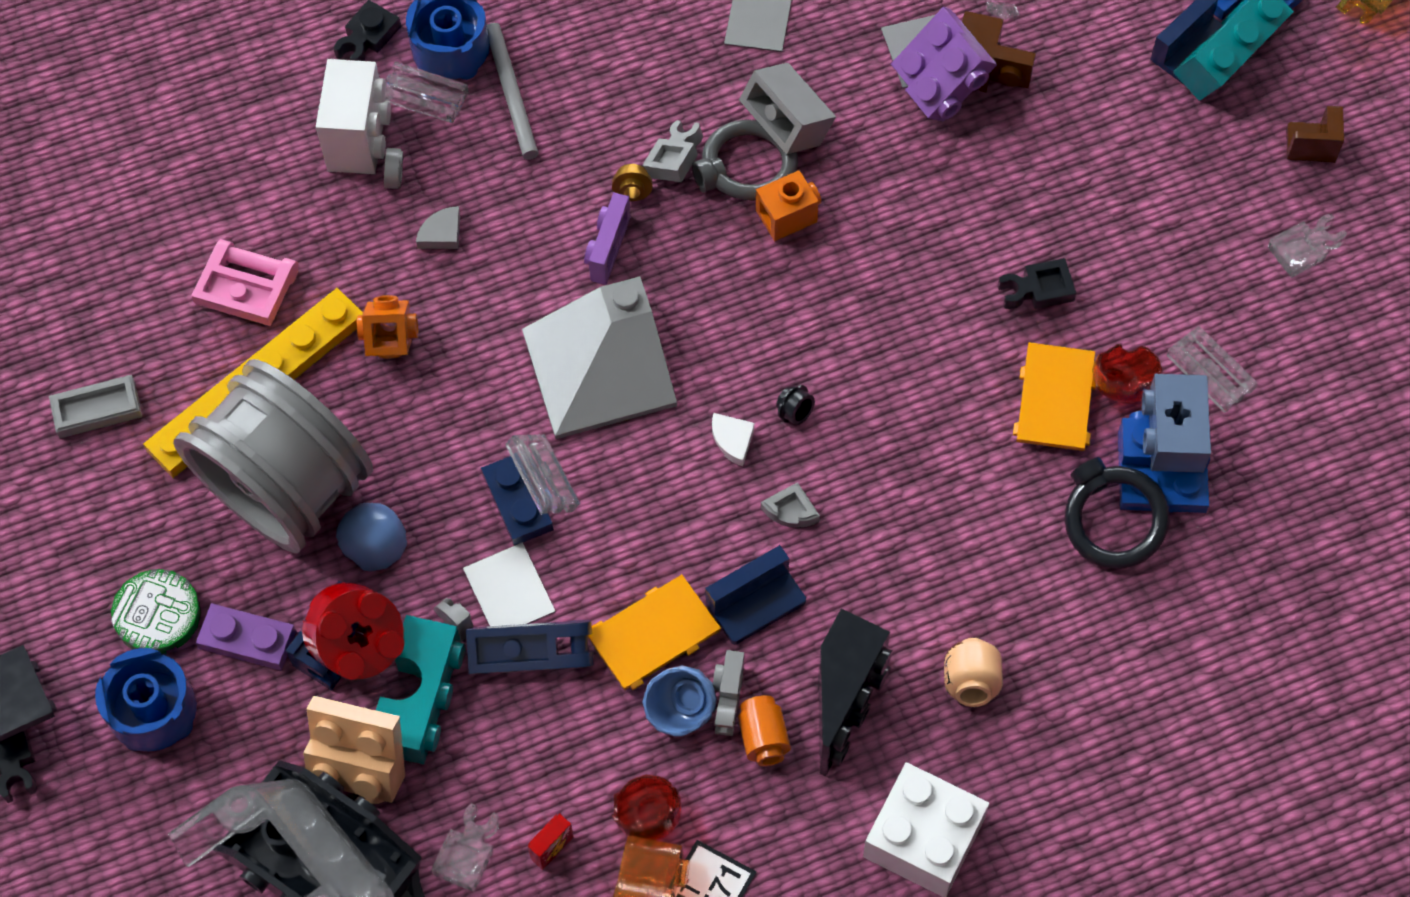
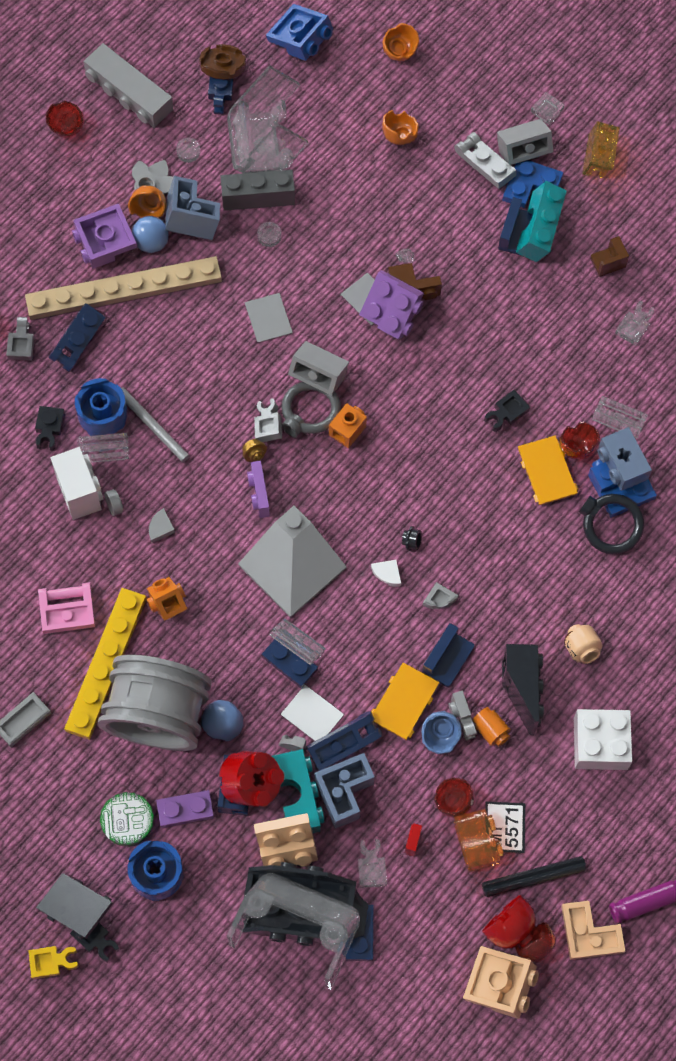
camera: 30 degrees left, 5 degrees up
(486, 702) = (338, 785): none -> sand blue brick

